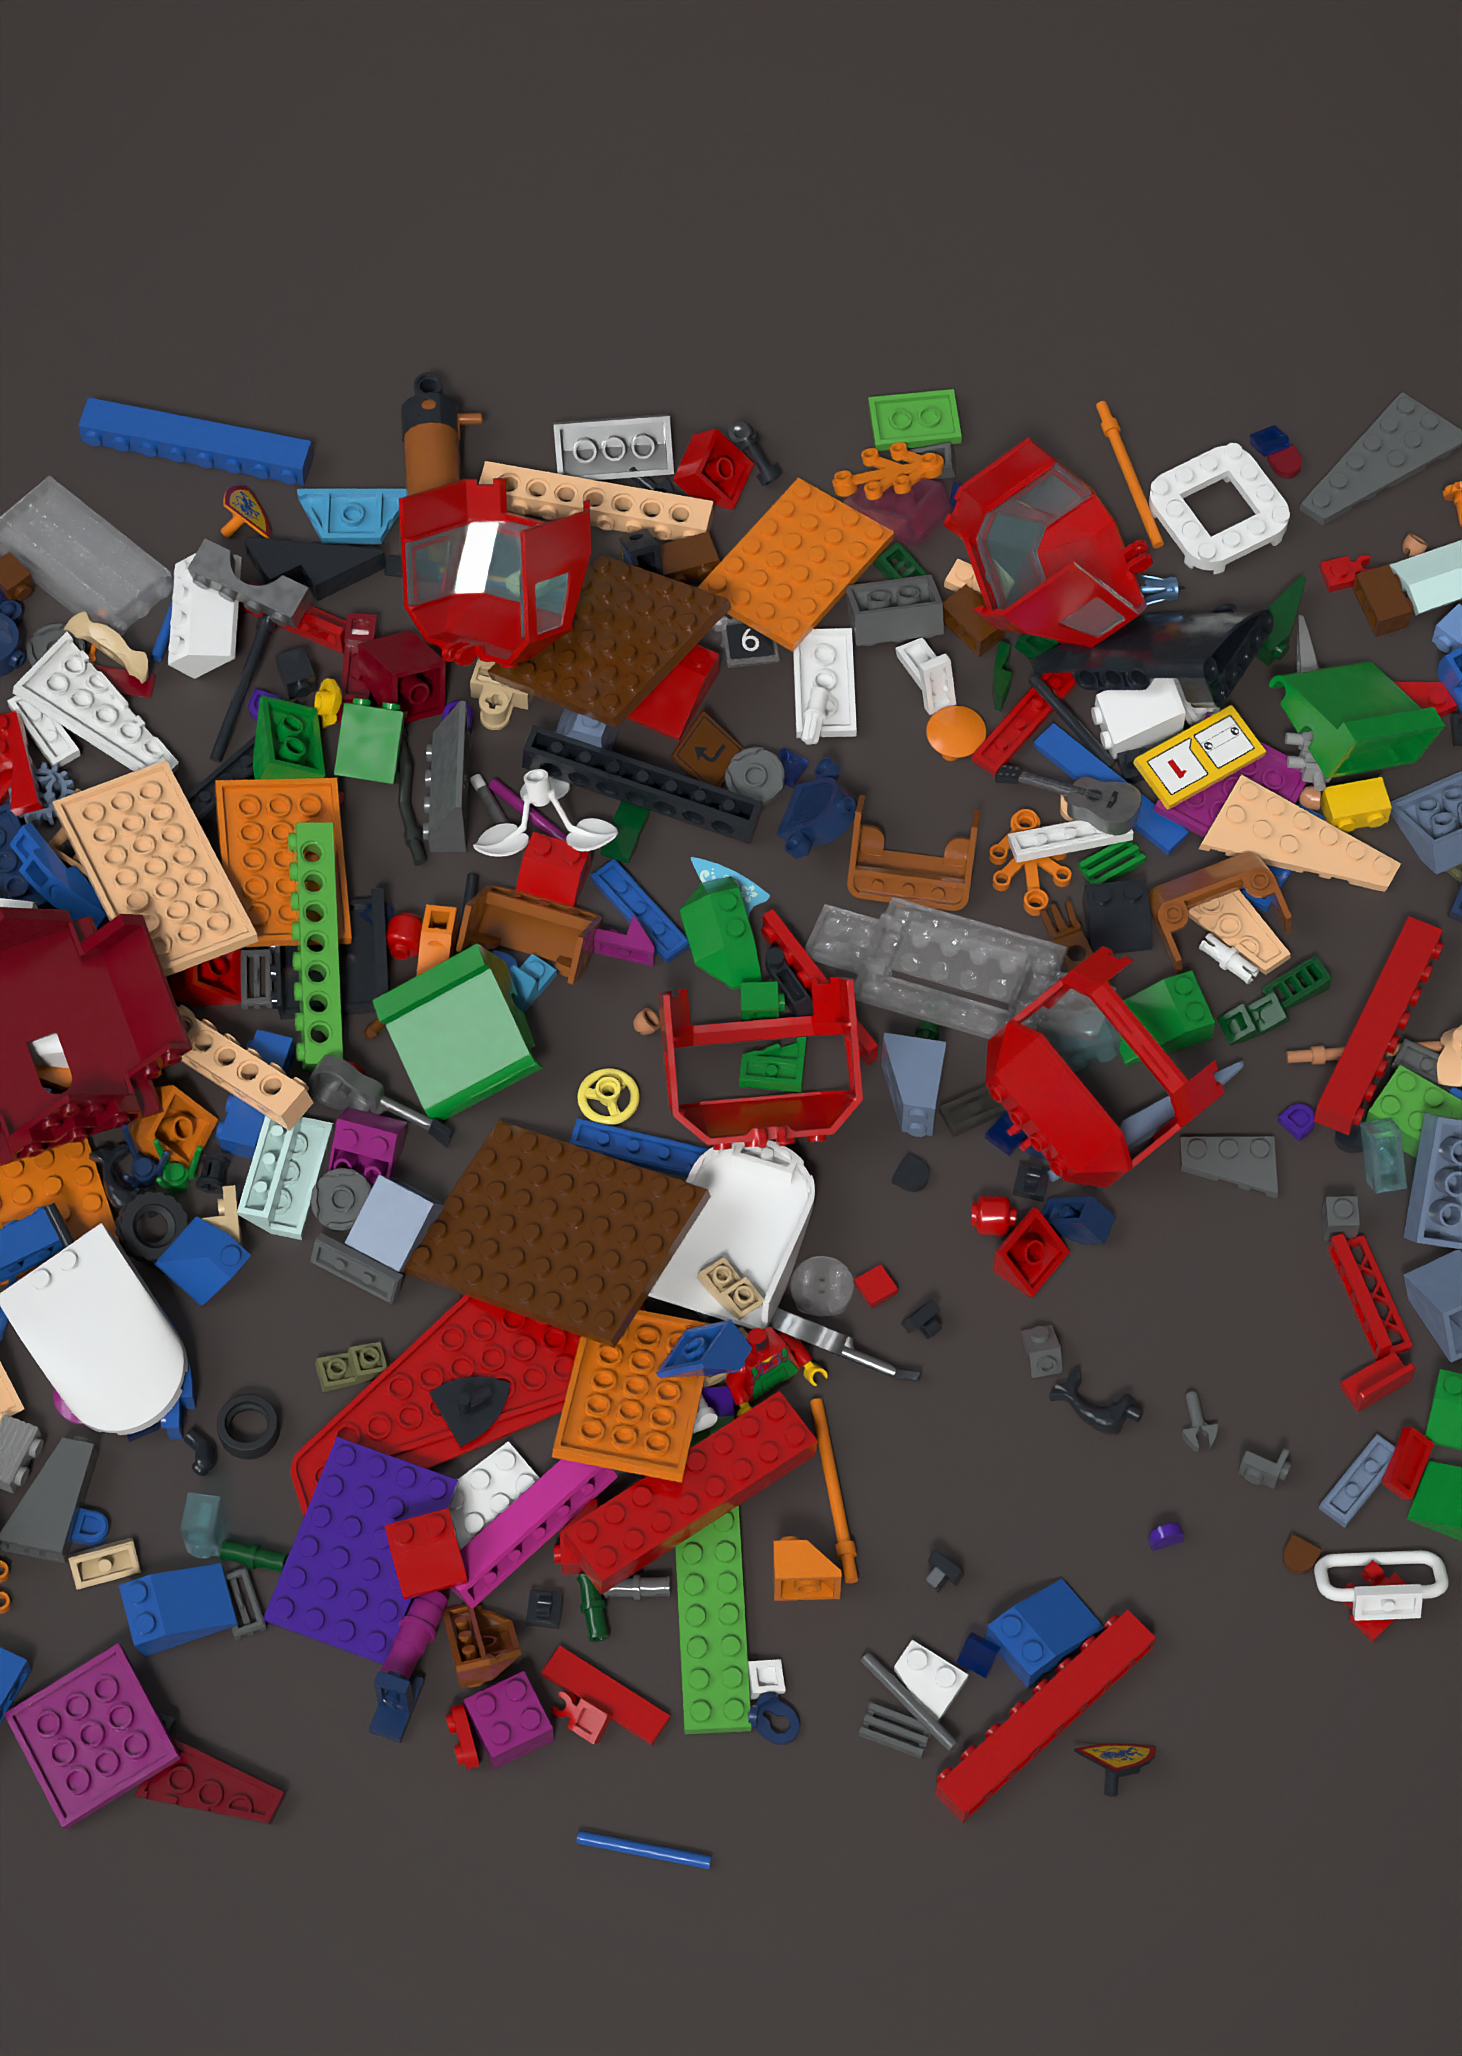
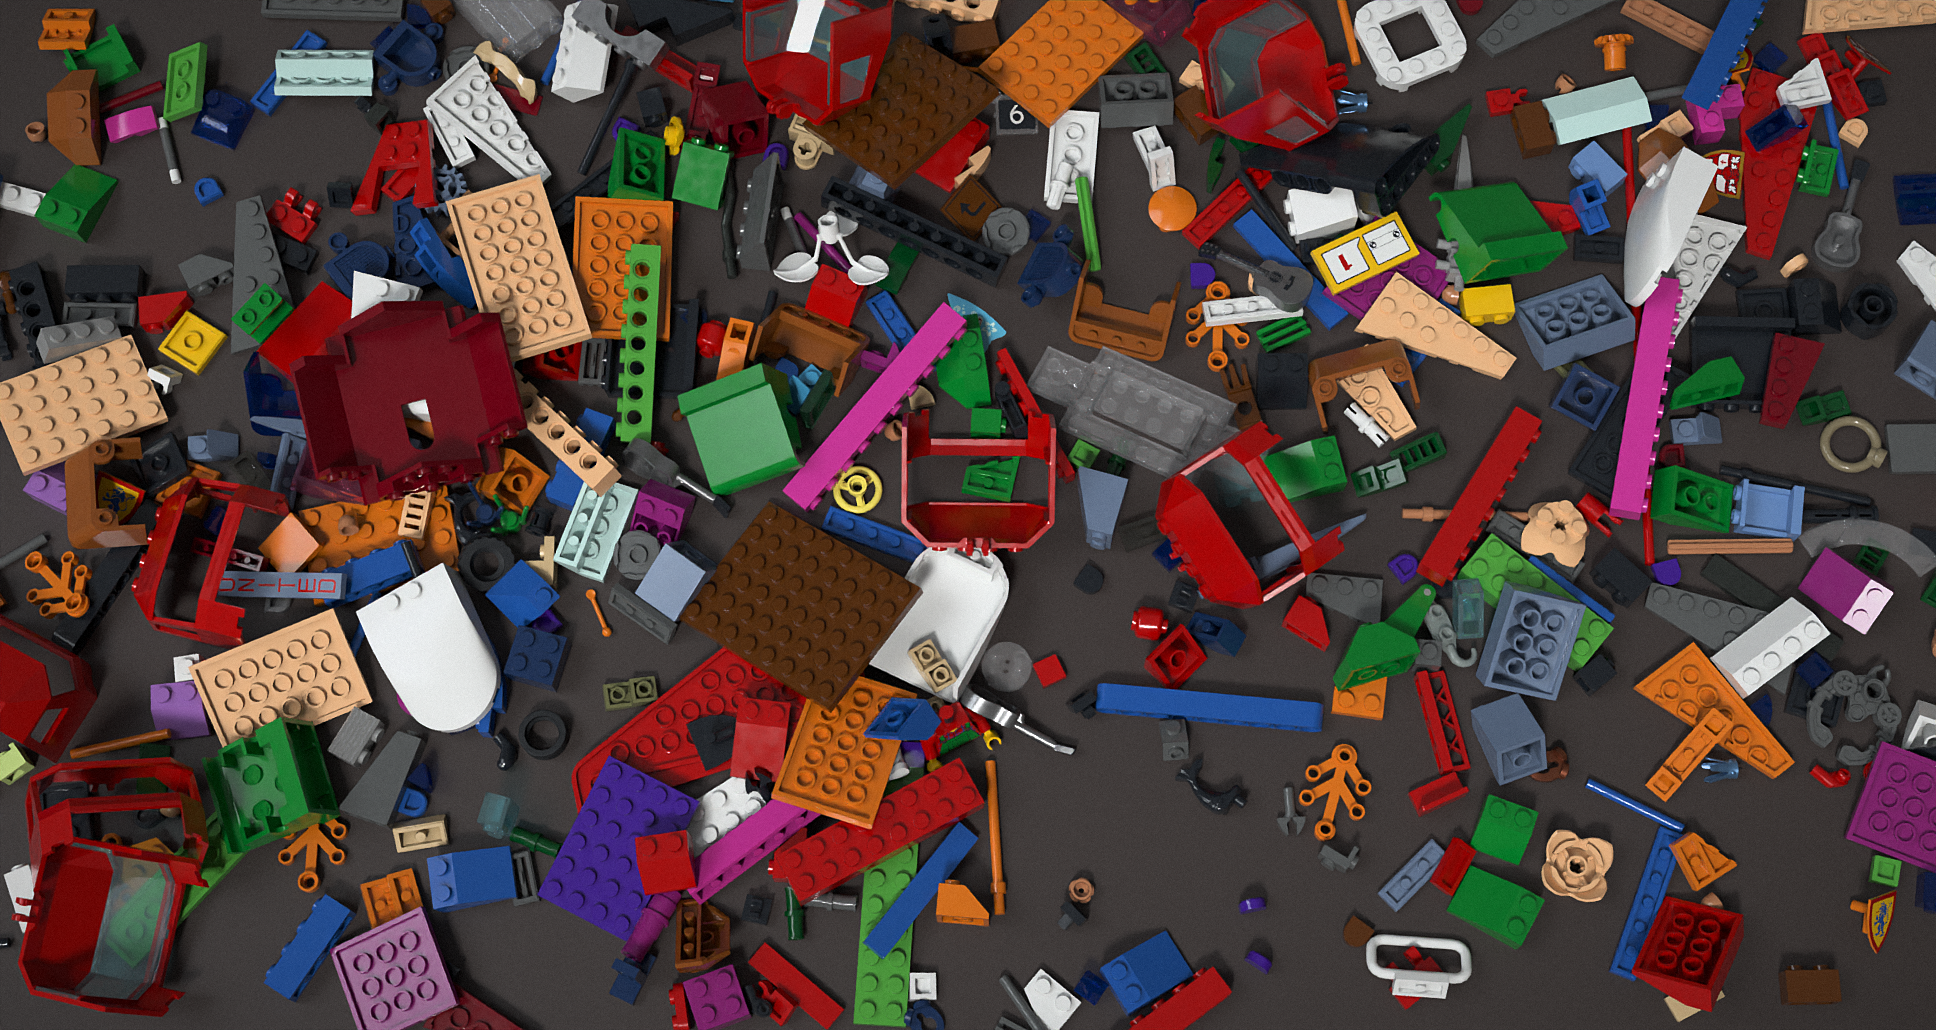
camera: 10 degrees right, 10 degrees up
(62, 1156) = (425, 514): none -> light nougat slope
(73, 1641) = (390, 897): none -> orange slope
(97, 1495) = (422, 778): none -> clear blue slope
(230, 1335) = (537, 658): none -> dark blue brick
(235, 1295) = (547, 622): none -> dark purple tile
(287, 1256) = (591, 595): none -> orange hinge
(525, 1398) = (760, 737): none -> red slope
(533, 1458) = (761, 788): none -> black bar
(547, 991) = (818, 399): none -> clear green tile
(560, 1720) = (755, 1003): none -> black arm
(620, 994) = (875, 408): none -> dark pink brick
(671, 979) = (921, 399): none -> tan tile
(708, 701) = (977, 165): none -> light nougat slope
(748, 1560) = (920, 890): none -> blue tile
(855, 755) = (1088, 223): none -> bright green axle
(882, 1023) = (1083, 455): none -> bright green plate
(954, 1534) = (1083, 897): none -> nougat plate
(1002, 805) = (1201, 275): none -> dark purple tile
(1081, 1307) = (1209, 707): none -> blue beam
(1183, 1601) = (1258, 961): none -> dark purple tile
(1189, 1196) = (1307, 622): none -> red slope
(1250, 1386) = (1336, 788): none -> orange plant
(1266, 1277) = (1361, 701): none -> orange wing
(1294, 1210) = (1390, 645): none -> green slope

